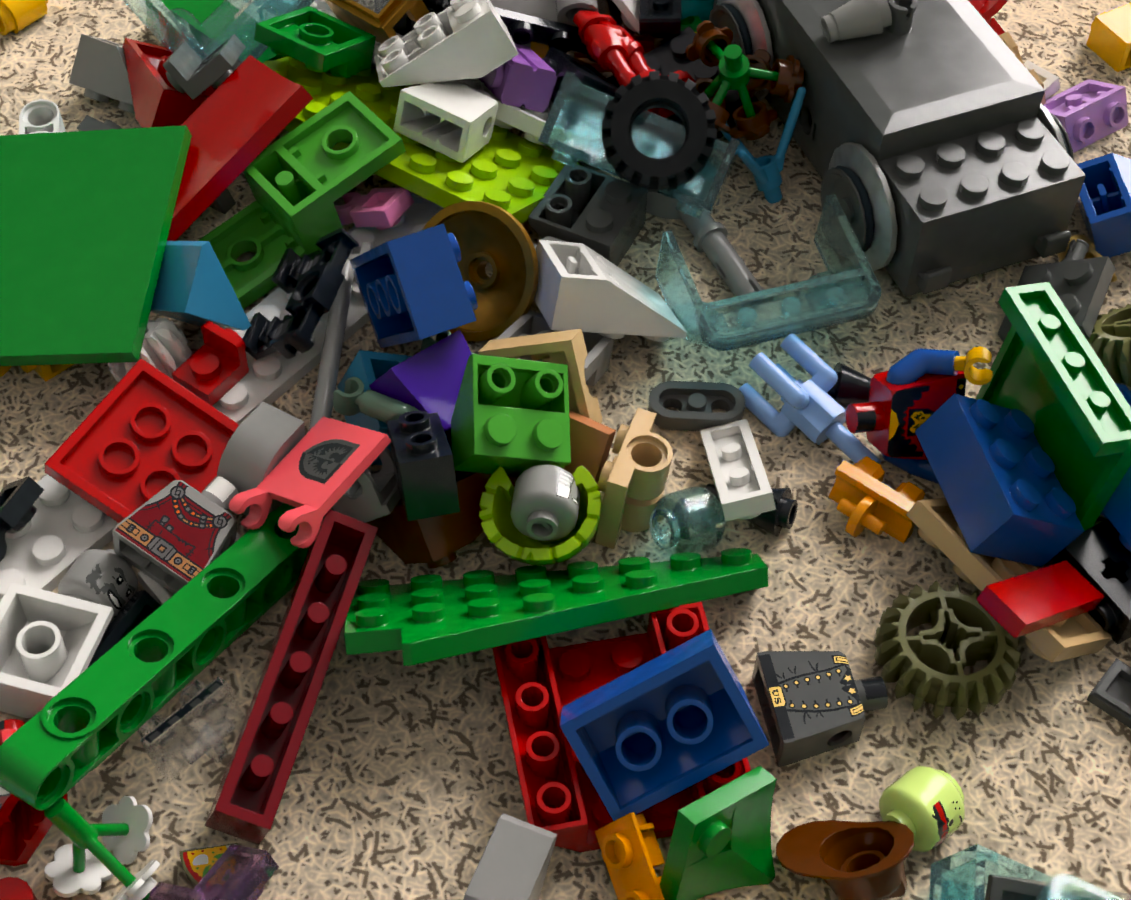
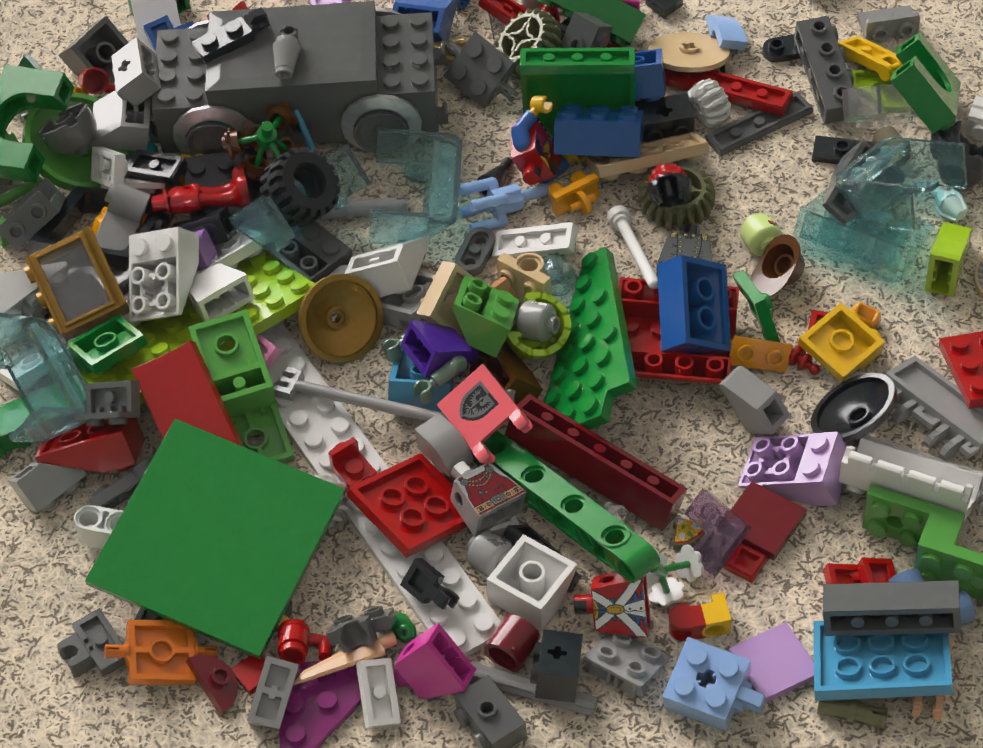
camera: 65 degrees left, 0 degrees up
(196, 287) = (299, 447): dark azure slope -> none
(314, 287) = (310, 389): black piece -> none
(414, 287) = (364, 338): blue brick -> none
(423, 465) = (506, 357): black brick -> none
(851, 581) = (620, 220): none -> white piece
(923, 609) = (668, 185): none -> black piece
(1039, 598) = (678, 140): red tile -> none

